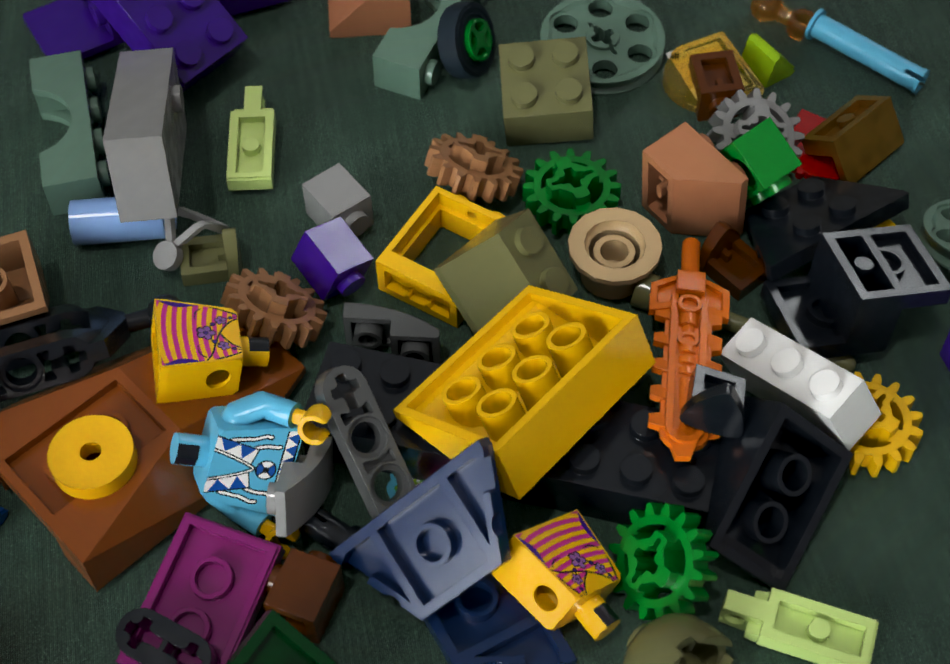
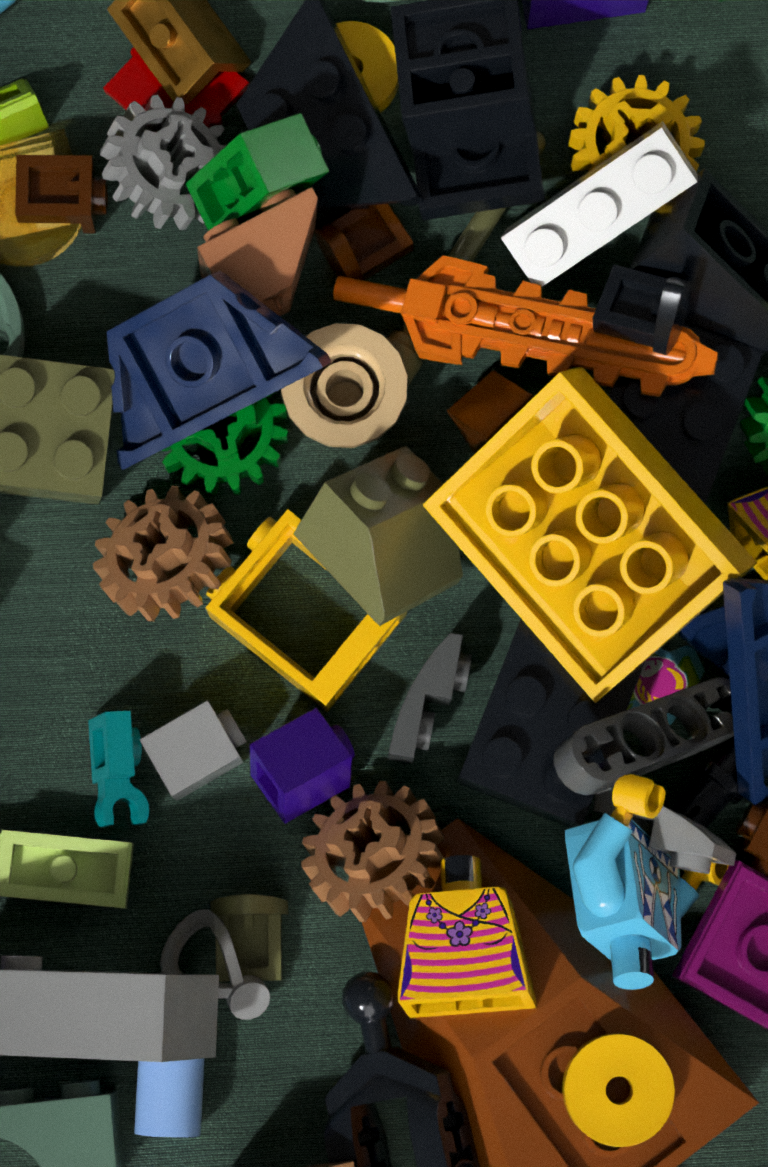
camera: 85 degrees left, 25 degrees up
(319, 161) = (113, 755): none -> teal plate
(605, 139) = (200, 362): none -> dark blue wing

